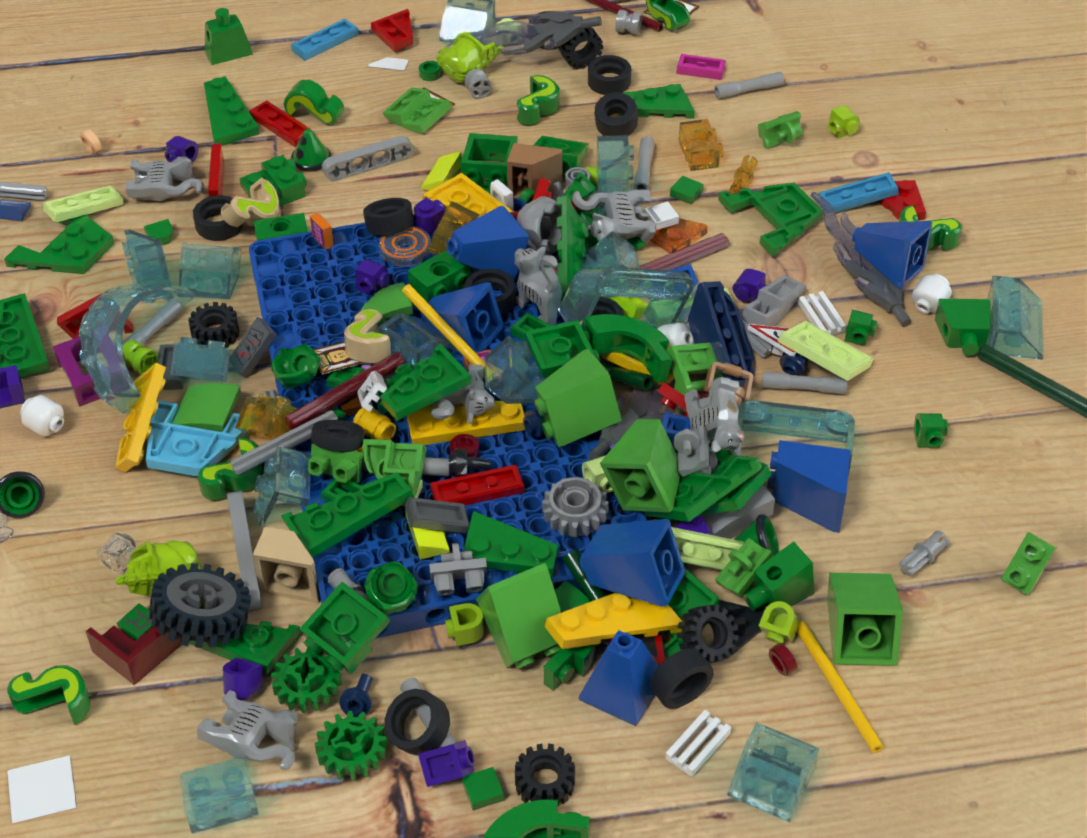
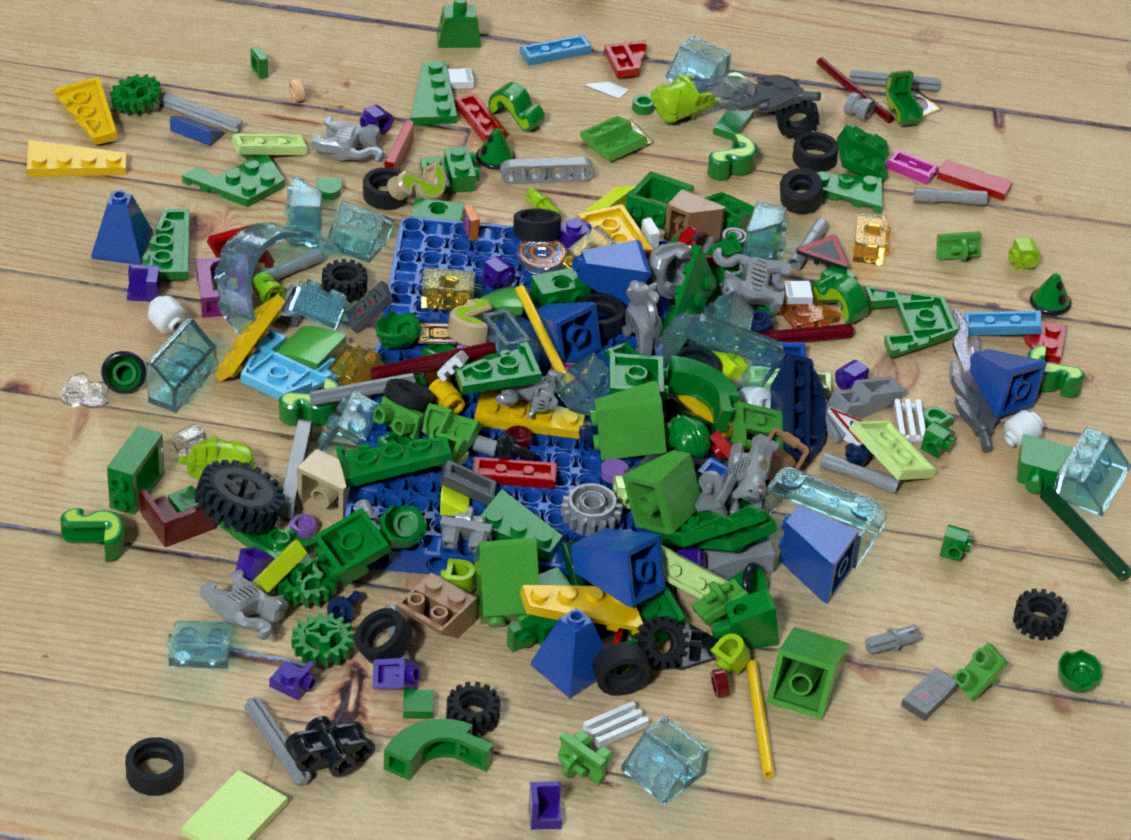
camera: 15 degrees right, 5 degrees down
(41, 789) = (62, 600): white sticker -> none
(42, 123) = (259, 62): none -> green tile
(72, 607) = (135, 467): none -> green window
(79, 471) = (180, 366): none -> clear light blue slope
(247, 89) = (461, 78): none -> white tile
(273, 674) = (280, 566): none -> neon yellow slope
(278, 612) = (304, 525): none -> medium lavender tile
(327, 307) = (447, 288): none -> clear yellow brick
(337, 804) = (293, 679): none -> dark purple bracket
(374, 191) = (539, 201): none -> lime axle
(461, 666) = (440, 606): none -> medium nougat slope
(478, 83) = (687, 131): light grey wheel -> none
(520, 68) = (732, 123): none -> green tile
(575, 454) = (611, 468): none -> medium lavender tile
(636, 397) = (688, 436): none -> green hair
(643, 253) = (762, 321): none -> dark blue plate
(654, 63) = (863, 152): none -> green plate
(666, 167) = (825, 250): none -> piece
(684, 799) = (581, 760): none -> bright green hips
(705, 202) = (844, 290): none -> green animal
(744, 174) = (900, 277): clear yellow pin -> none
(761, 64) = (974, 179): none -> tile
(844, 304) = (939, 415): none -> green tile
(886, 156) = (1051, 297): none -> green hat
(987, 602) = (930, 694): none -> tile
(1050, 470) = (1039, 625): none -> black tyre

